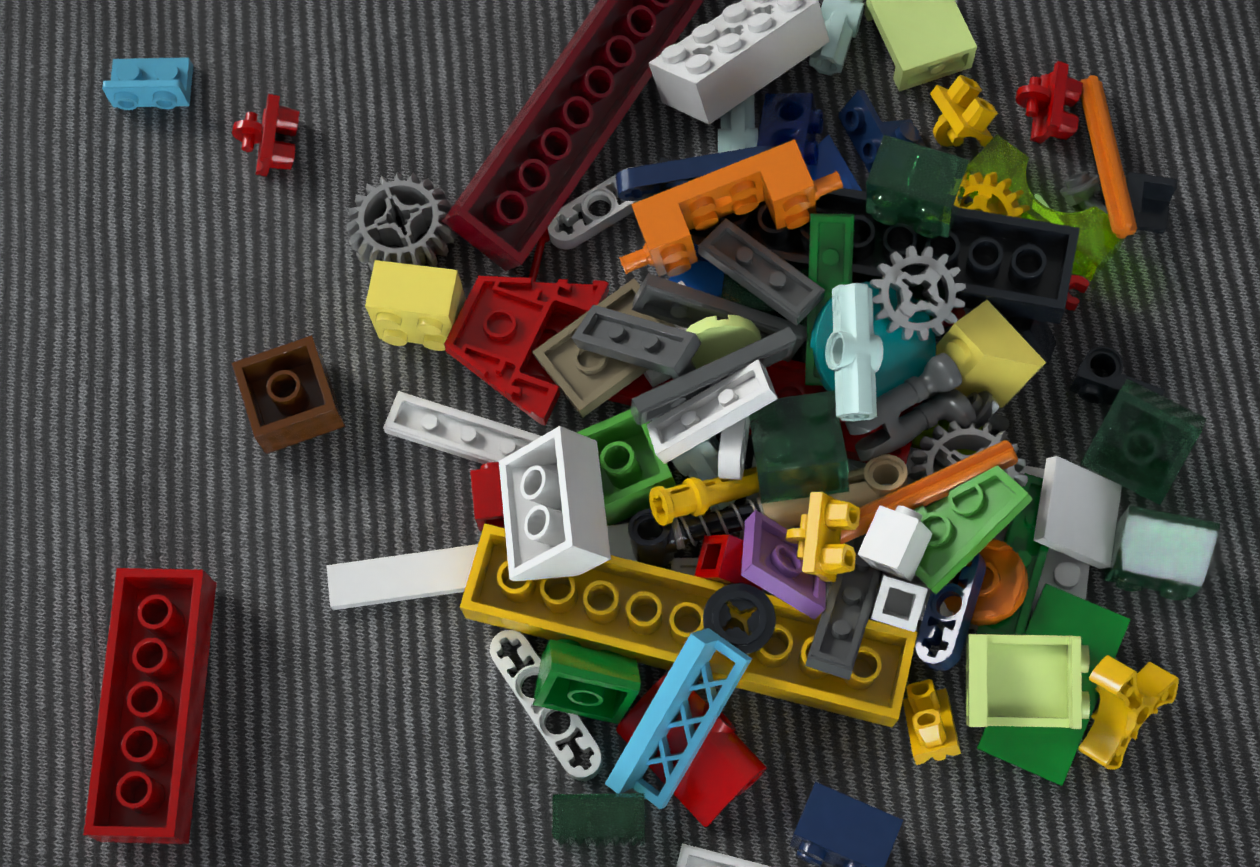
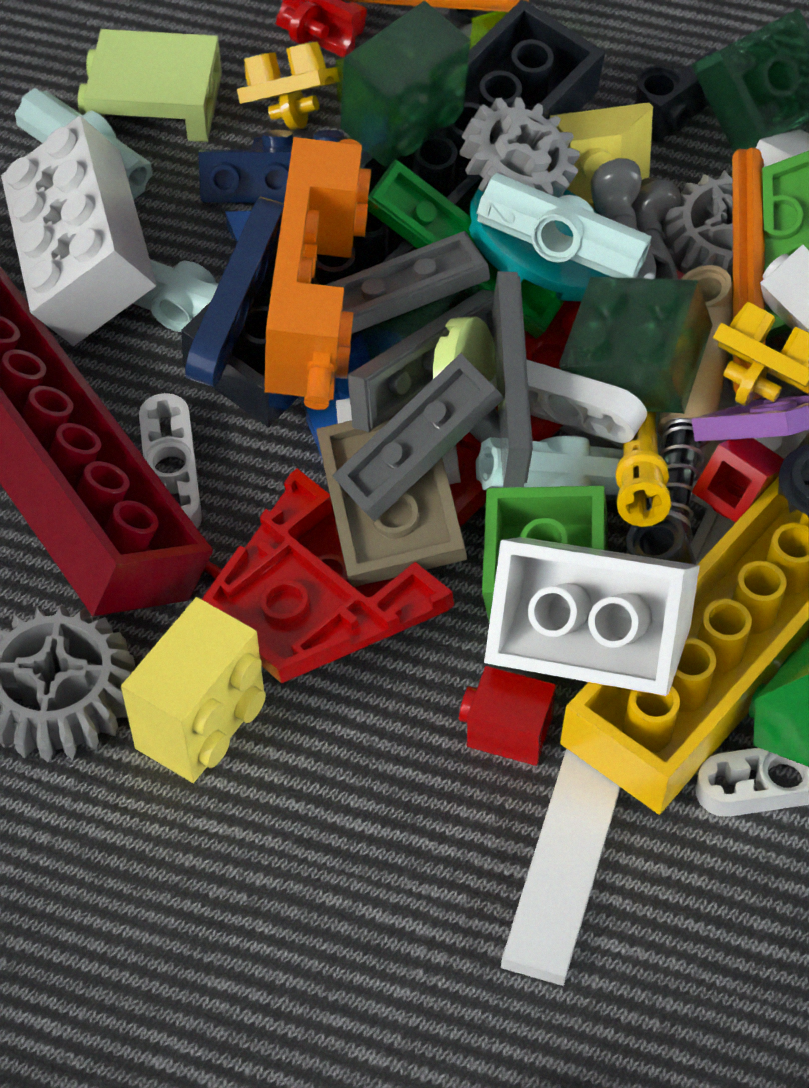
camera: 70 degrees left, 15 degrees down
(288, 394) = (228, 902): reddish brown brick -> none
(453, 430) = (392, 729): white tile -> none
(711, 411) = (558, 394): white plate -> none
(790, 118) = (197, 230): clear blue brick -> none

